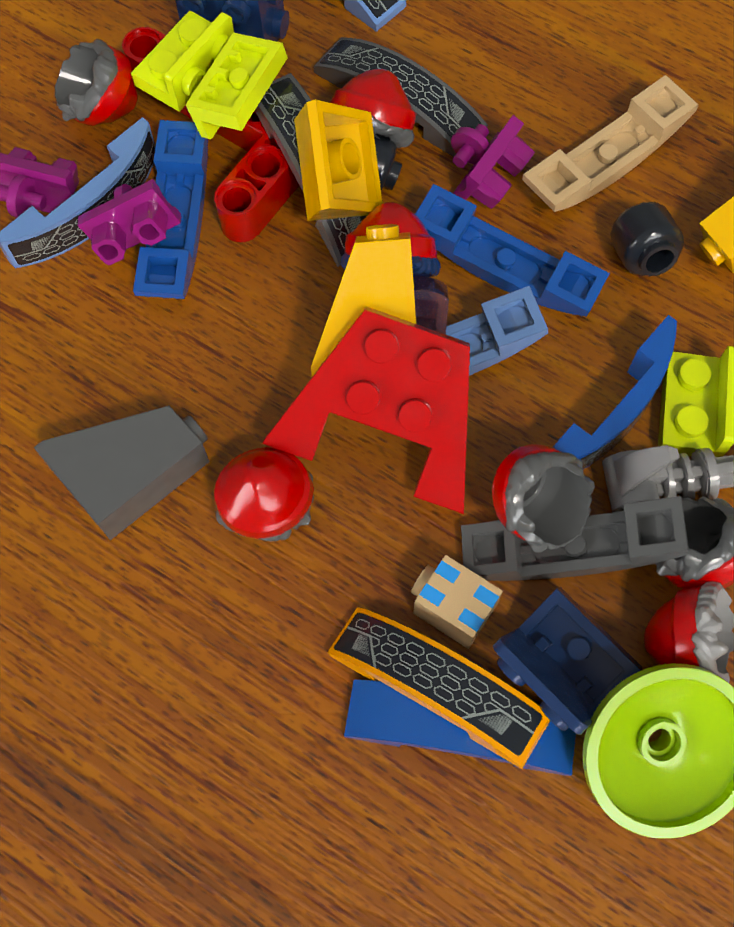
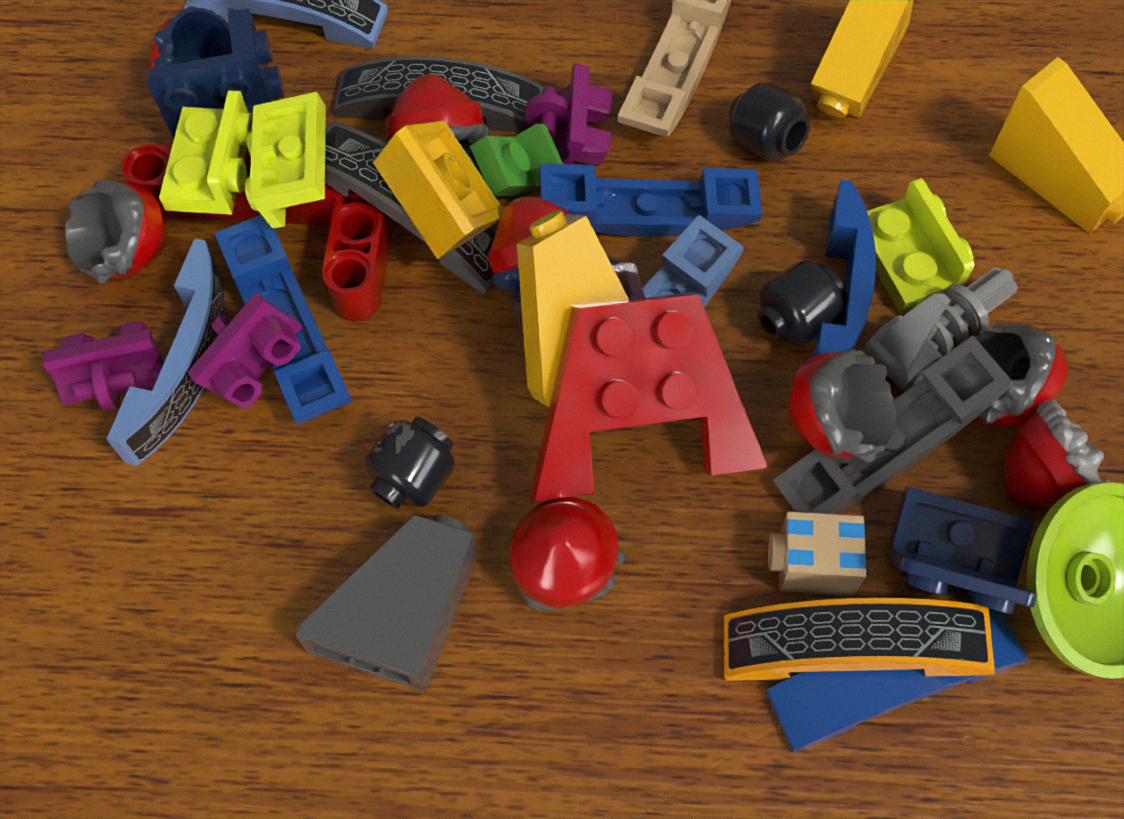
camera: 30 degrees left, 5 degrees down
(194, 366) = (410, 463): none -> black head
(412, 171) = (513, 163): none -> bright green bracket
(573, 396) = (799, 302): none -> black head

